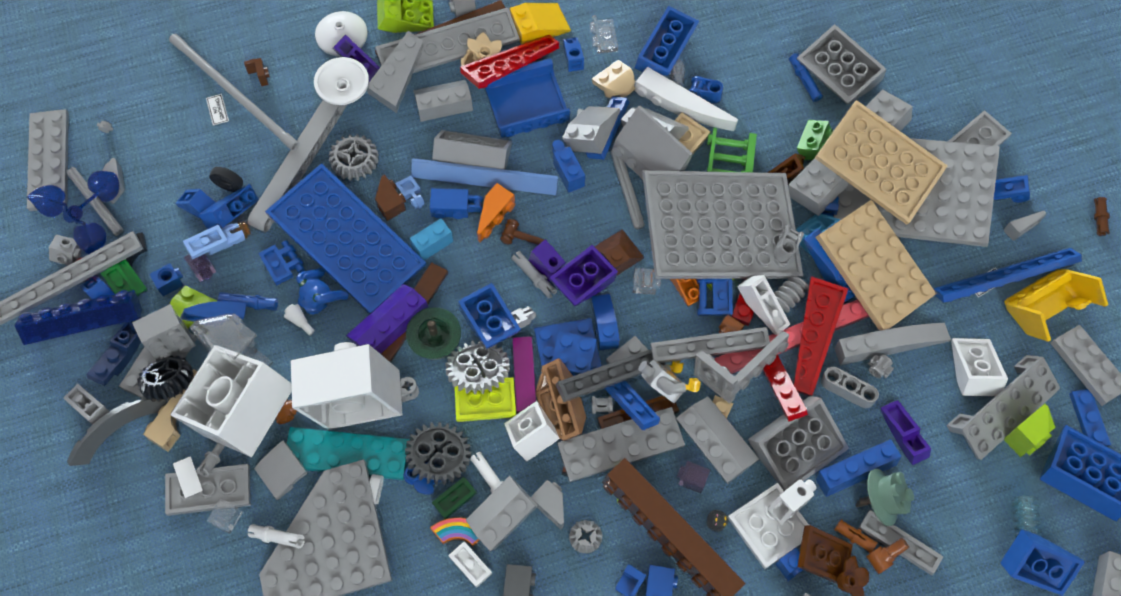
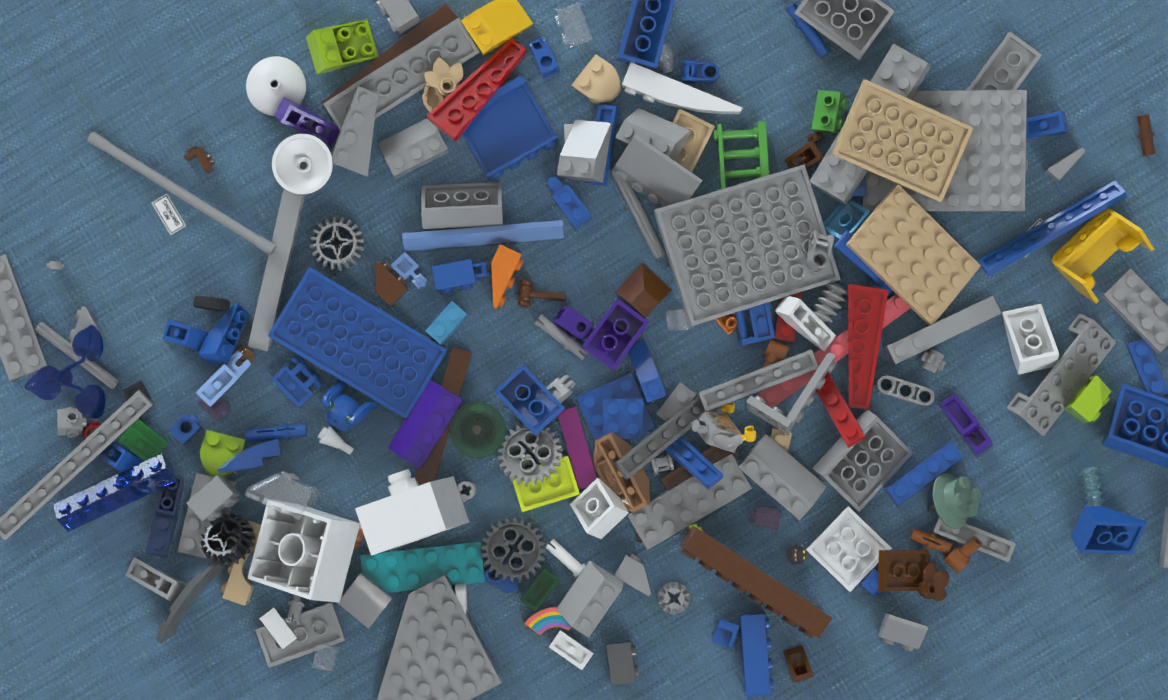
camera: 10 degrees left, 20 degrees up
(269, 534) = (374, 666): white pin -> none
(792, 500) = (860, 529): white torso -> none

